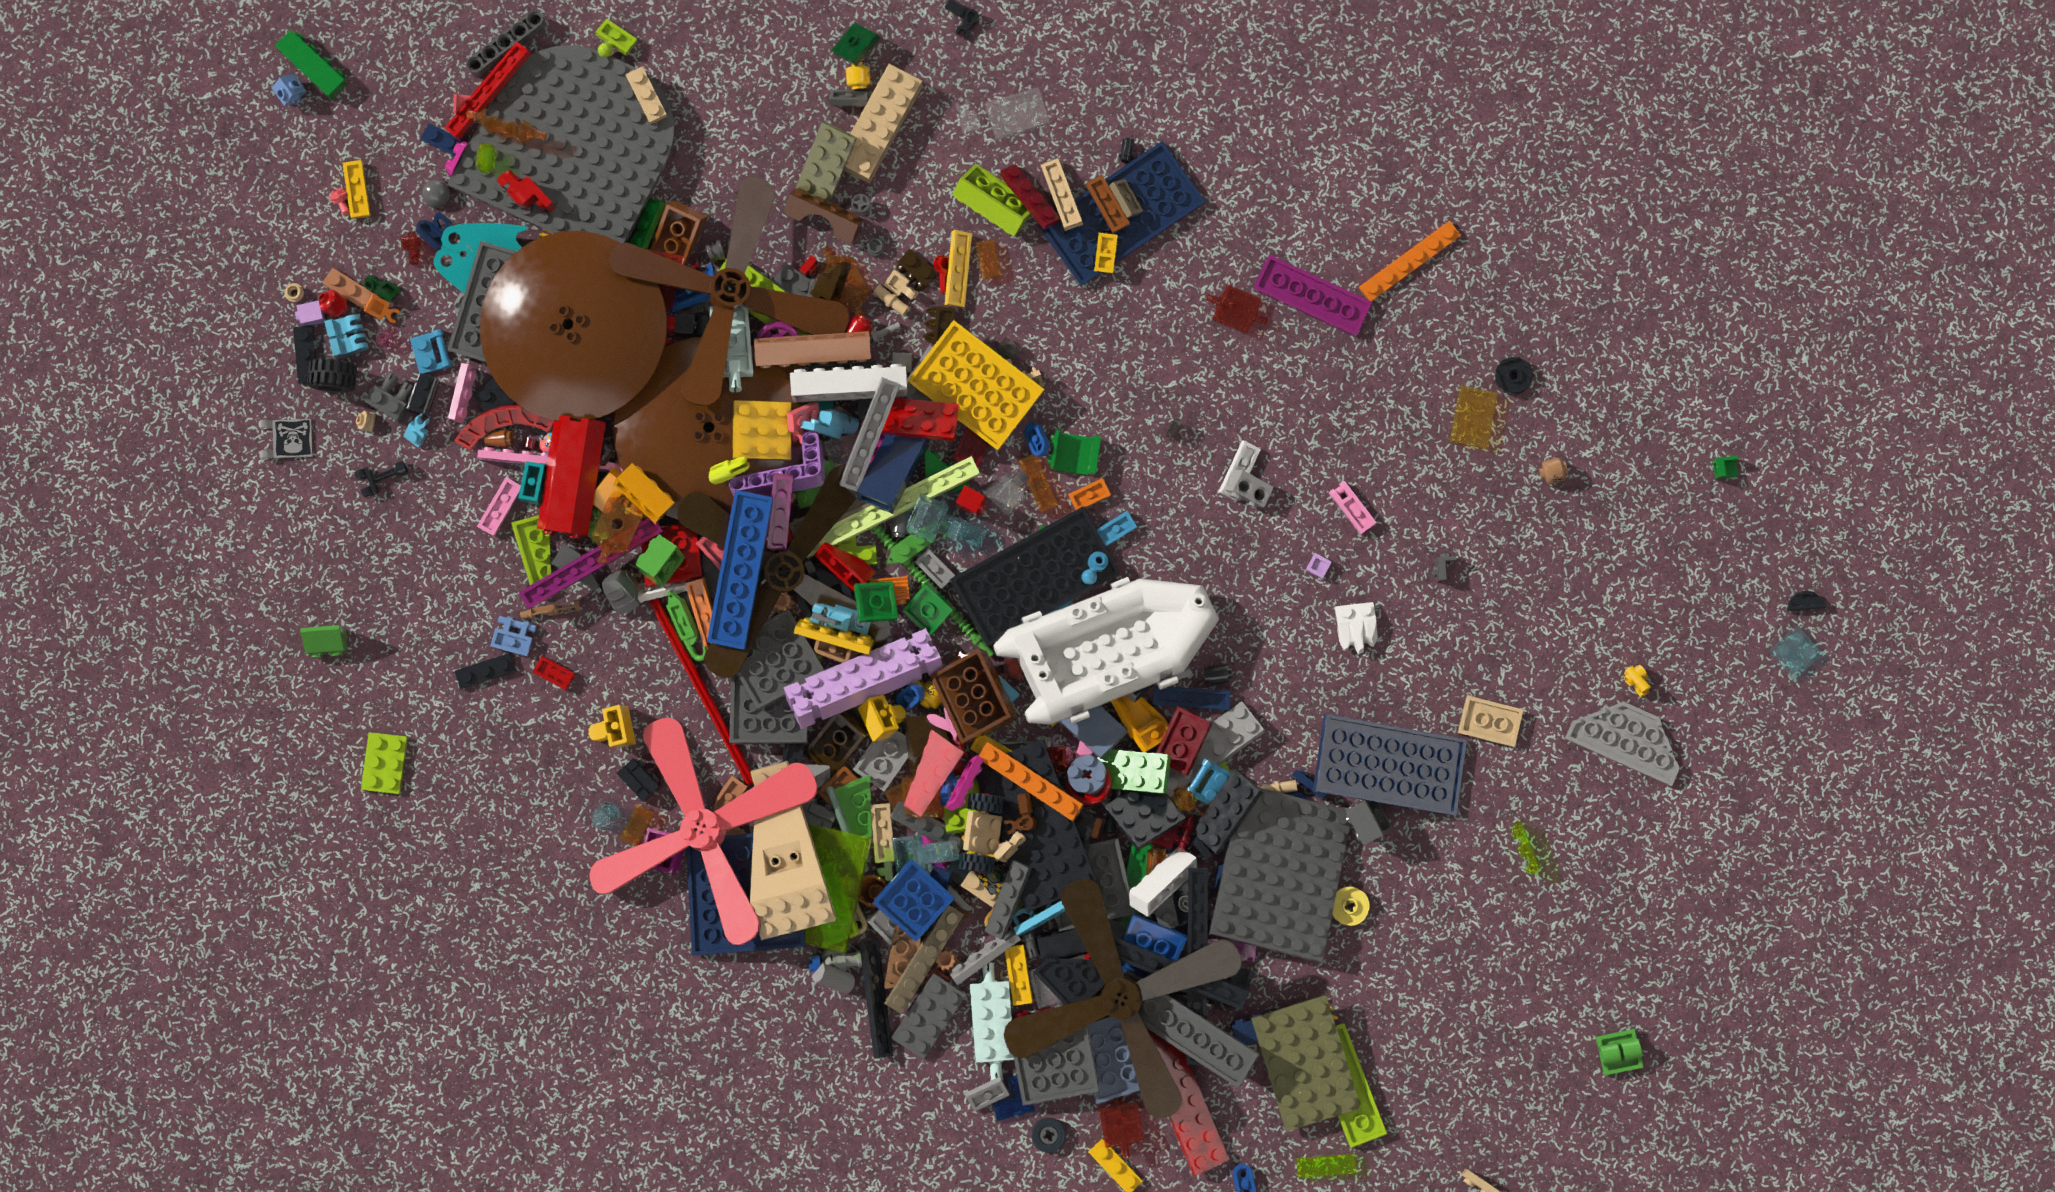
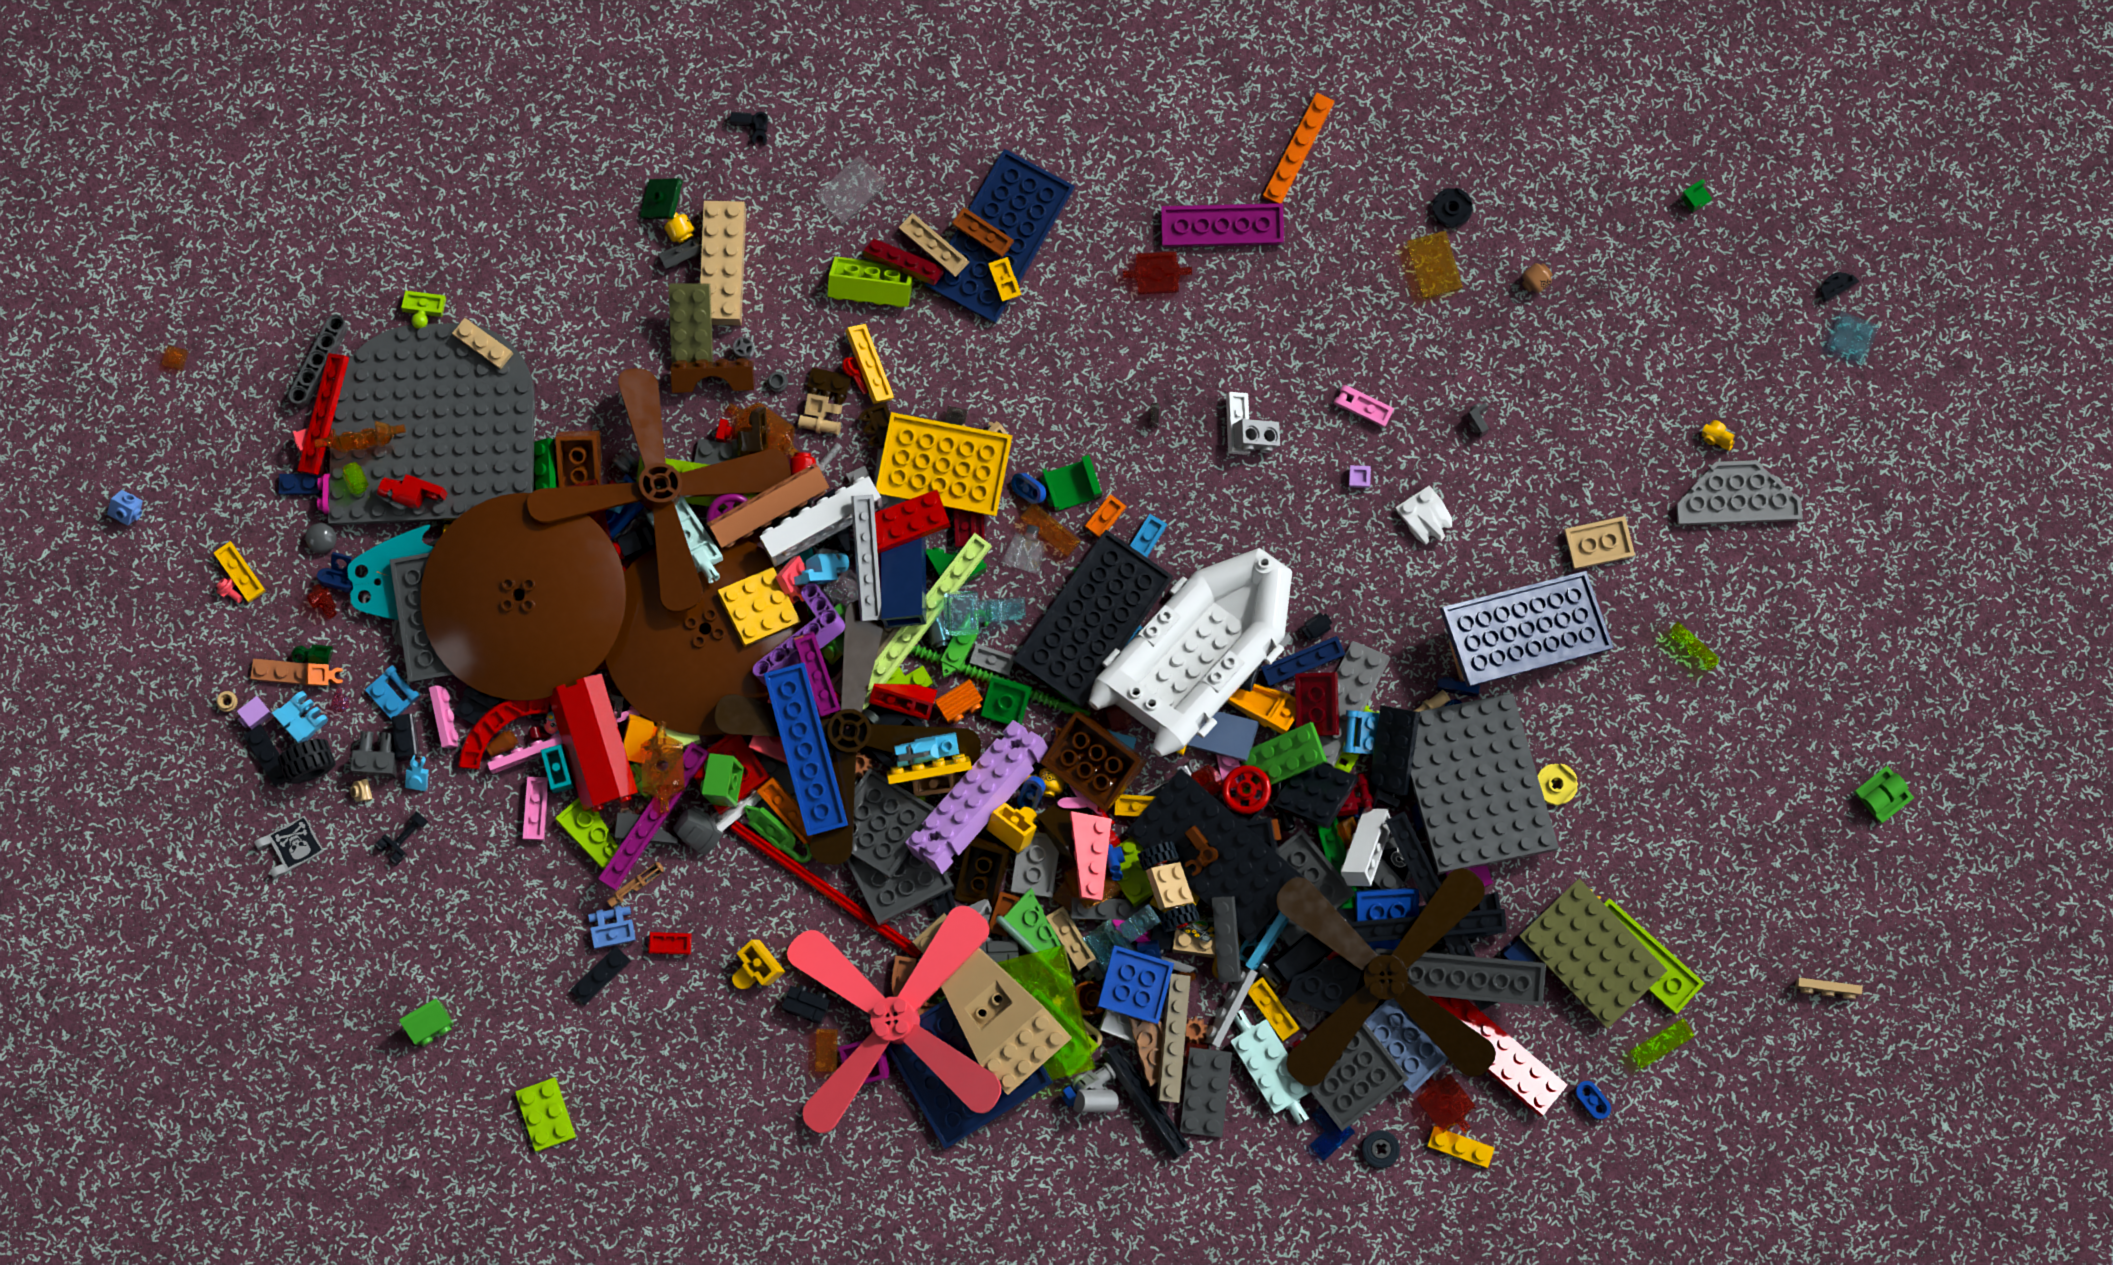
camera: 25 degrees left, 5 degrees down
(311, 64) = (135, 473): green brick -> none
(333, 303) = (272, 692): red head -> none
(606, 816) = (791, 1056): clear light blue head -> none
(644, 493) = (673, 722): light orange brick -> none
(727, 470) = (745, 659): neon yellow arm -> none
(875, 602) = (952, 717): green plate -> none
(964, 783) = (1128, 847): dark pink plate -> none
(968, 119) = (806, 219): clear plate -> none
(971, 502) = (996, 577): red brick -> none
(987, 1094) = (1301, 1138): light grey plate -> none
(988, 259) = (893, 341): clear orange plate -> none
(1008, 848) = (1202, 888): tan plate -> none
(1031, 781) = (1190, 814): orange plate -> none
(1077, 770) = (1236, 771): sand blue plate -> none
(1089, 576) = (1146, 591): dark azure plate -> none
(1126, 150) = (974, 174): black pin -> none
(1126, 198) = (997, 218): dark tan plate -> none
(1184, 799) = (1346, 759): clear orange plate -> none
(1368, 821) = (1533, 693): dark grey brick -> none

